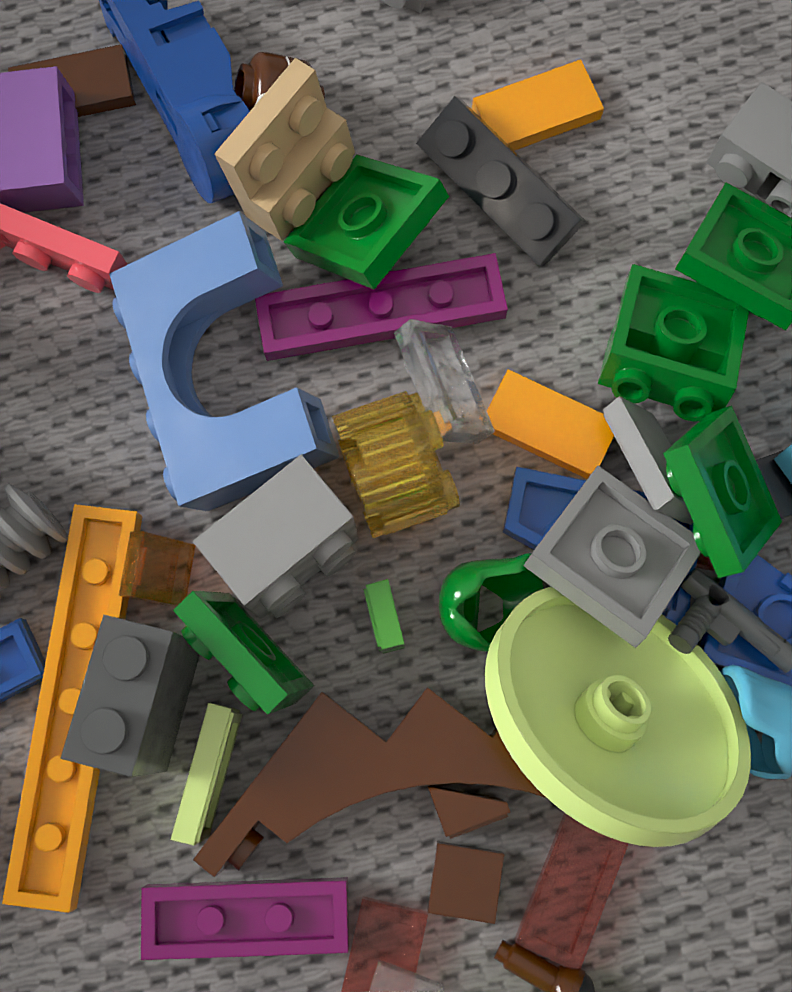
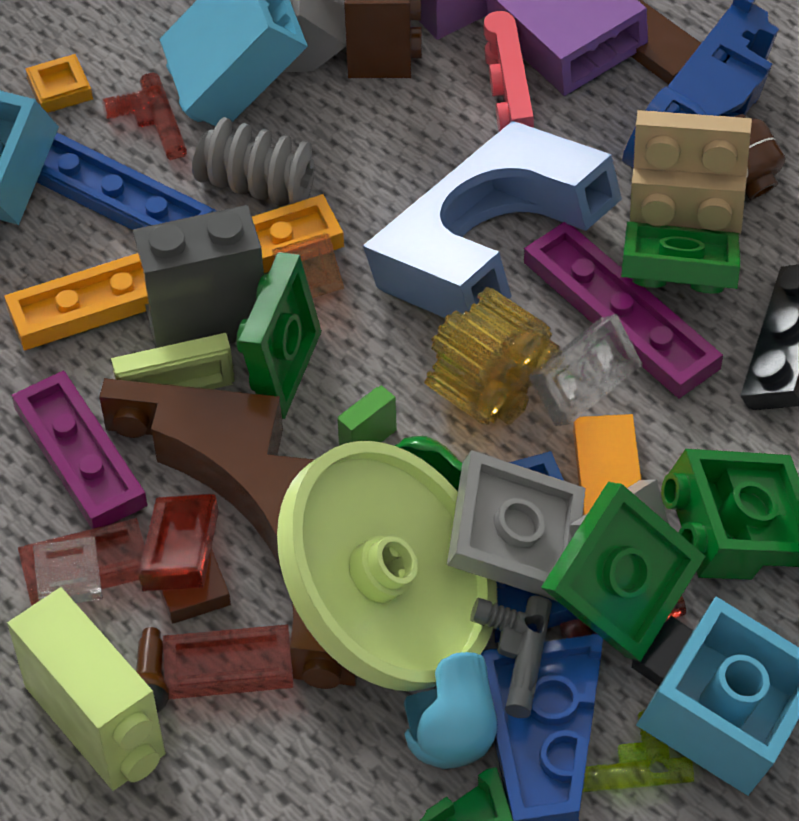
camera: 60 degrees right, 25 degrees down
(280, 539) = (377, 314): light grey brick -> none
(424, 876) = (179, 542): none -> clear red tile
(466, 811) = (245, 546): reddish brown slope -> none

